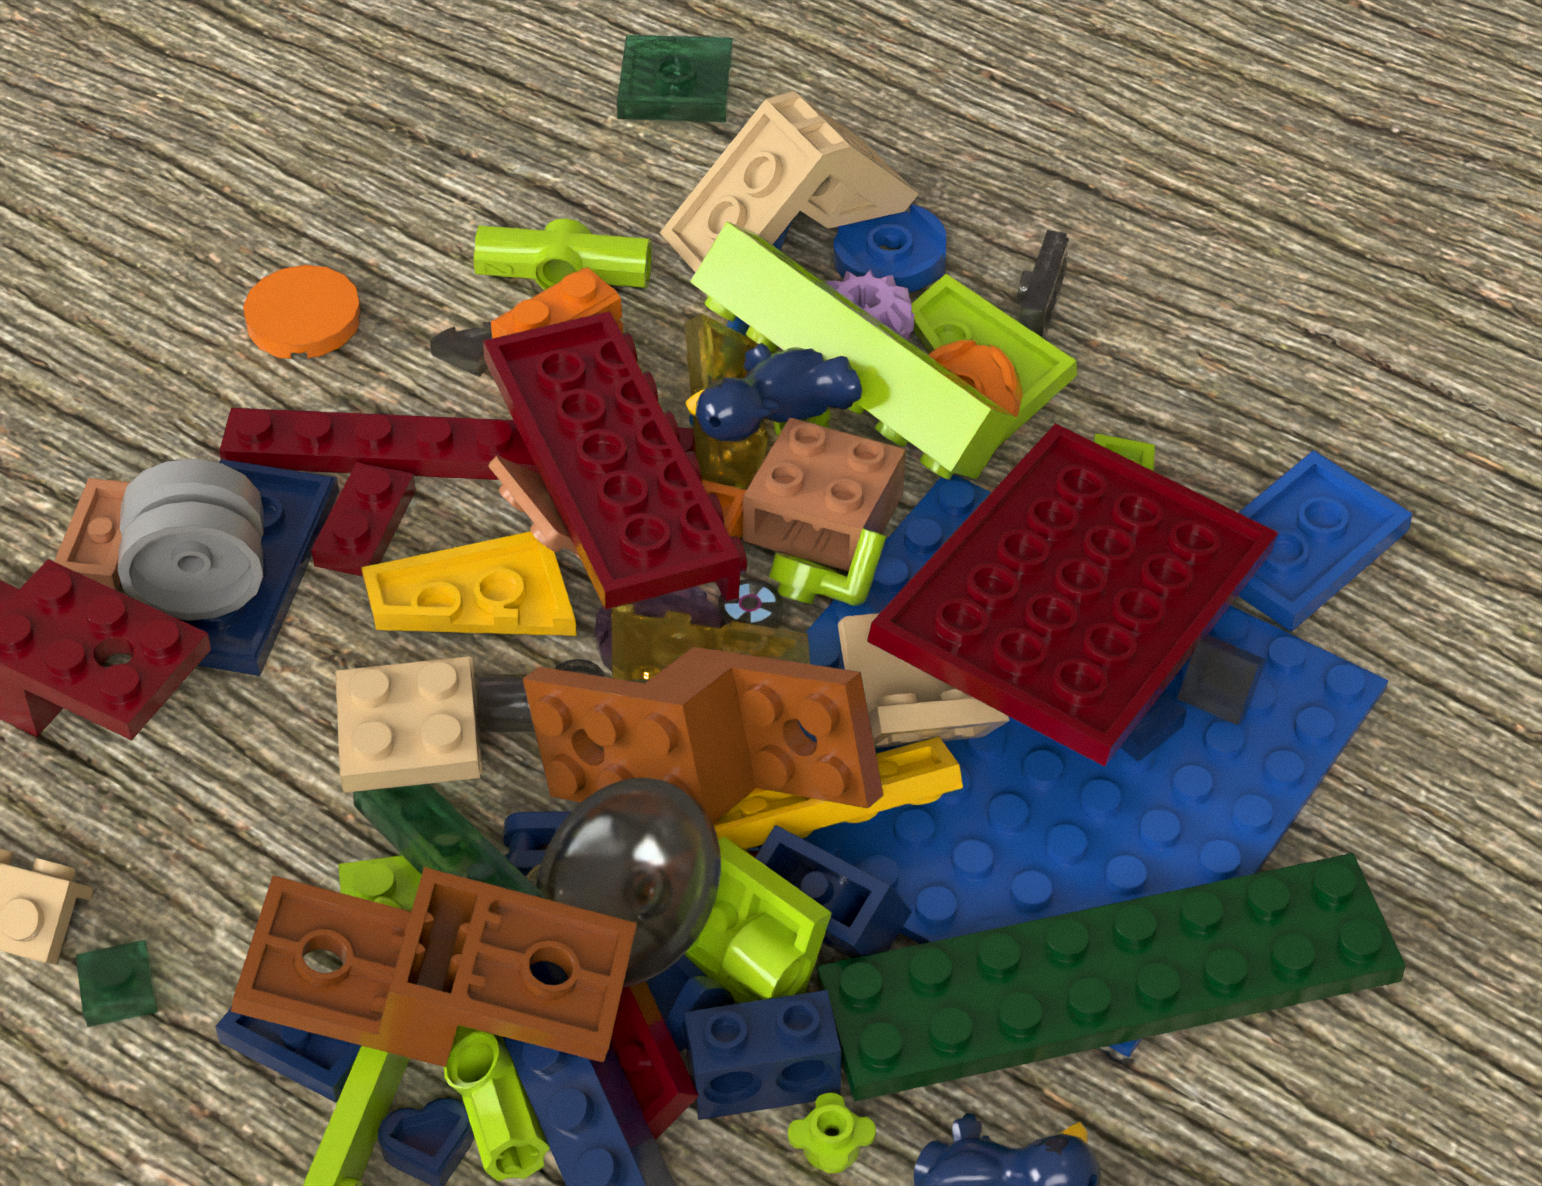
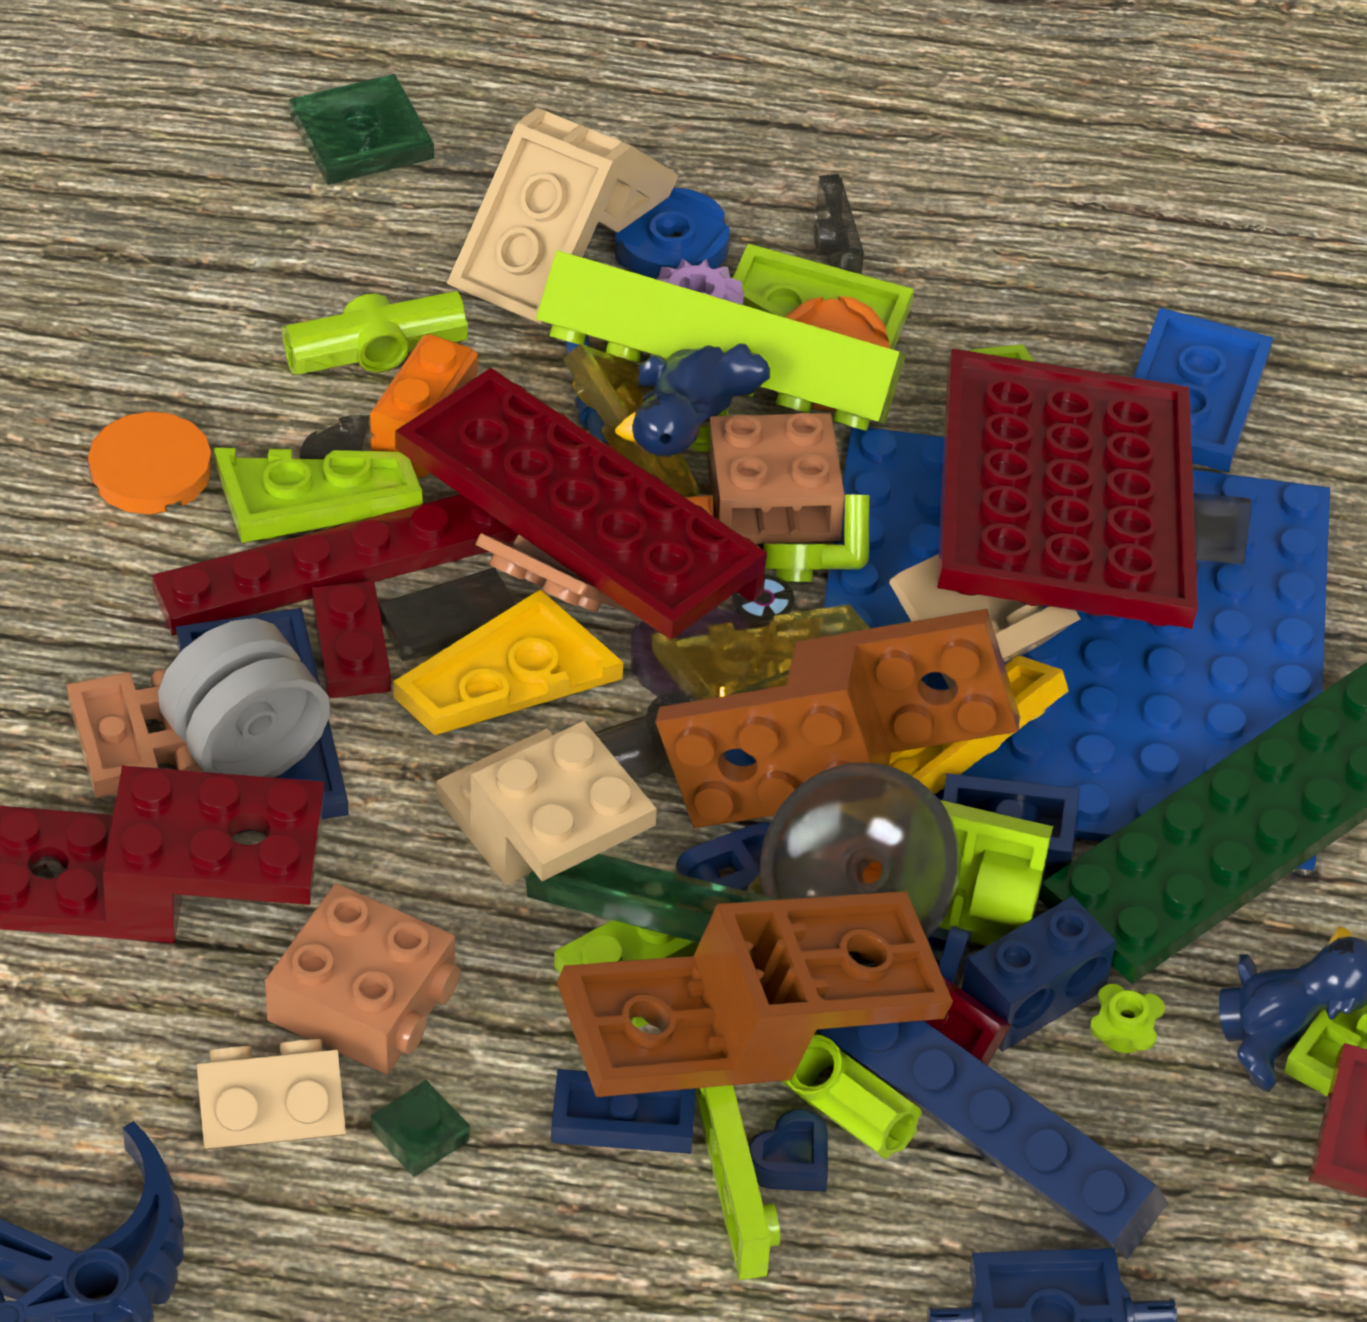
camera: 30 degrees left, 0 degrees up
(144, 825) = (362, 979): none -> nougat brick
(409, 378) = (301, 495): none -> lime wing
(453, 521) = (443, 613): none -> clear smoke plate

